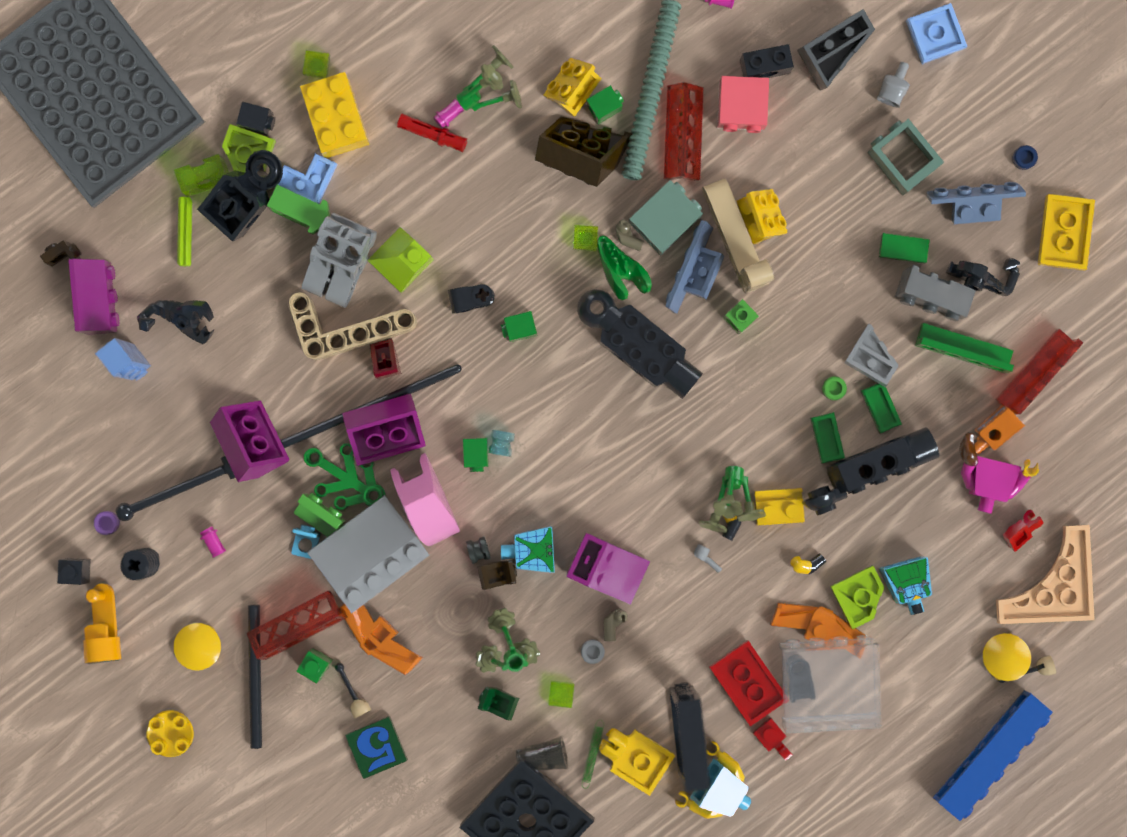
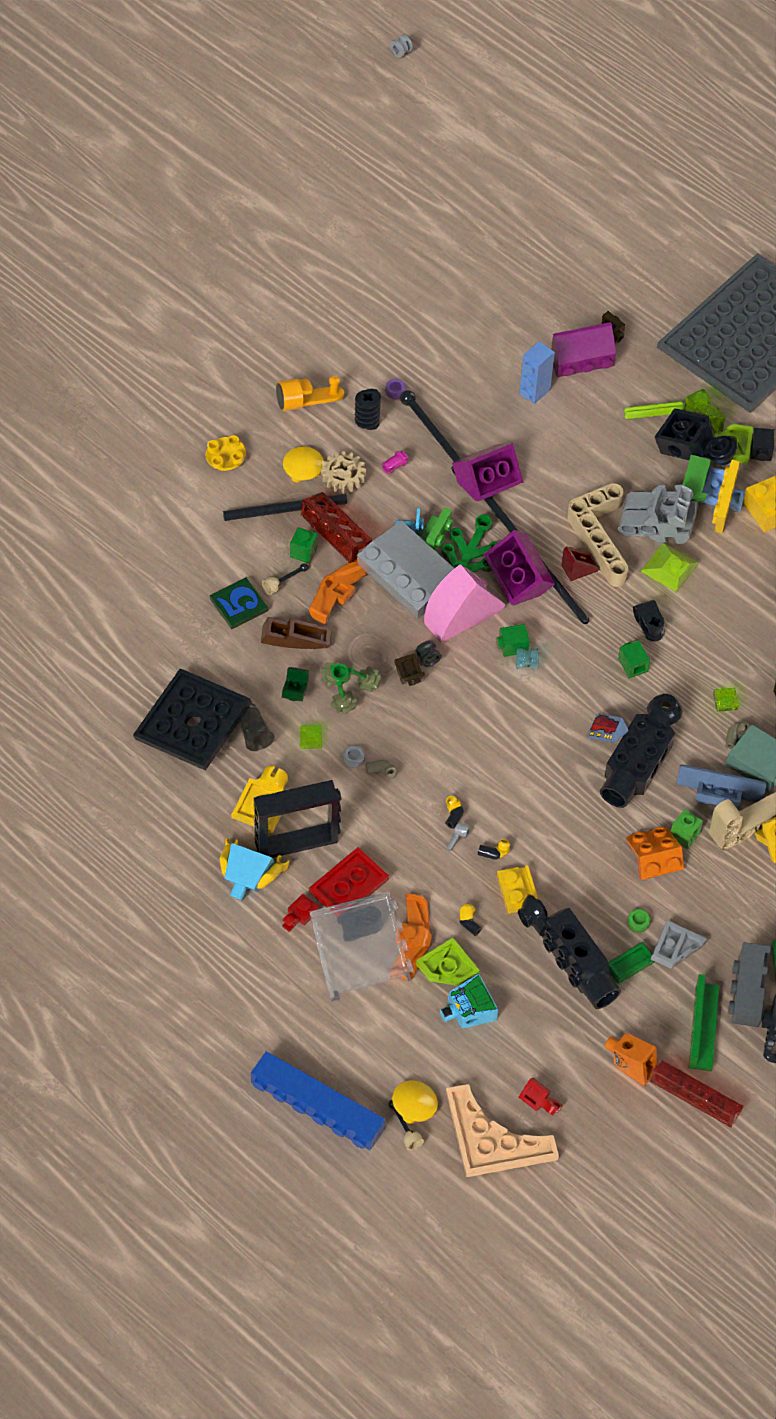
camera: 80 degrees right, 30 degrees down
(73, 571) = (351, 368): black brick -> none
(183, 315) = (582, 415): black animal -> none
(218, 595) = (343, 472): none -> tan gear
(331, 179) = (725, 496): none -> yellow plate
(430, 691) = (295, 634): none -> reddish brown slope
(532, 550) = (437, 695): torso -> none
(591, 752) = (252, 767): bright green piece -> none
(607, 568) = (433, 751): magenta slope -> none
(610, 376) = (607, 728): none -> slope
(620, 266) = (708, 726): green animal -> none
(676, 554) = (455, 809): none -> arm
(727, 506) = (536, 844): olive plant -> none
(758, 354) = (656, 852): none -> orange bracket
(827, 438) = (597, 918): green tile -> none
(991, 478) = (585, 1055): dark pink torso -> none

